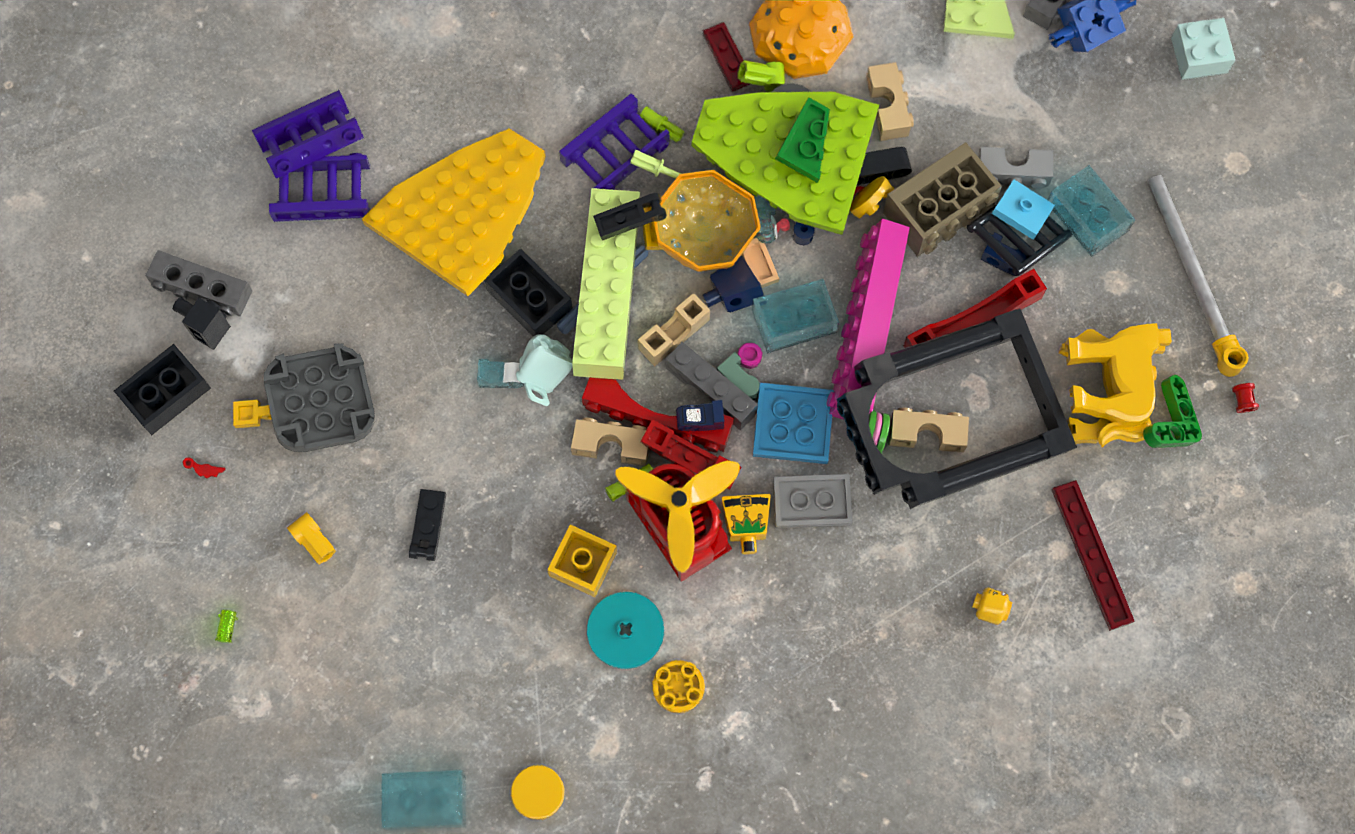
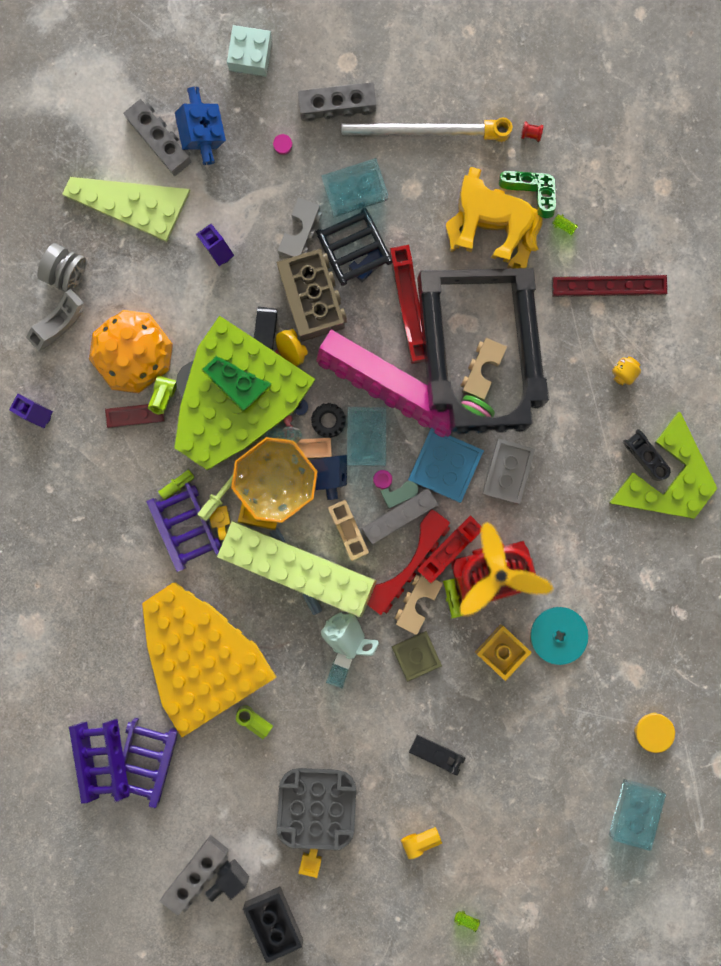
camera: 70 degrees left, 15 degrees up
(203, 470) = (342, 908): red piece -> none
(404, 296) = (255, 723): none -> lime piece
(528, 293) = (285, 630): black brick -> none
(544, 462) = (416, 656): none -> olive tile
(629, 216) = (255, 538): black plate -> none
(638, 181) = (219, 520): none -> yellow plate
(678, 686) = (611, 611): yellow tile -> none
(700, 417) = (426, 533): dark blue leg -> none
(746, 519) = (510, 522): torso -> none
(798, 255) = (316, 420): none -> black tyre
(868, 738) = (689, 489): none -> lime wing
(887, 83) = (198, 301): tan arch -> none
(901, 654) = (638, 450): none -> black piece
(959, 81) = (215, 245): none -> dark purple slope
(1023, 209) = (338, 237): medium azure plate -> none
(1109, 120) = (282, 144): none -> dark pink tile
(1147, 473) = (564, 224): none -> clear neon green pin
(1187, 150) = (328, 95): none -> flat silver brick

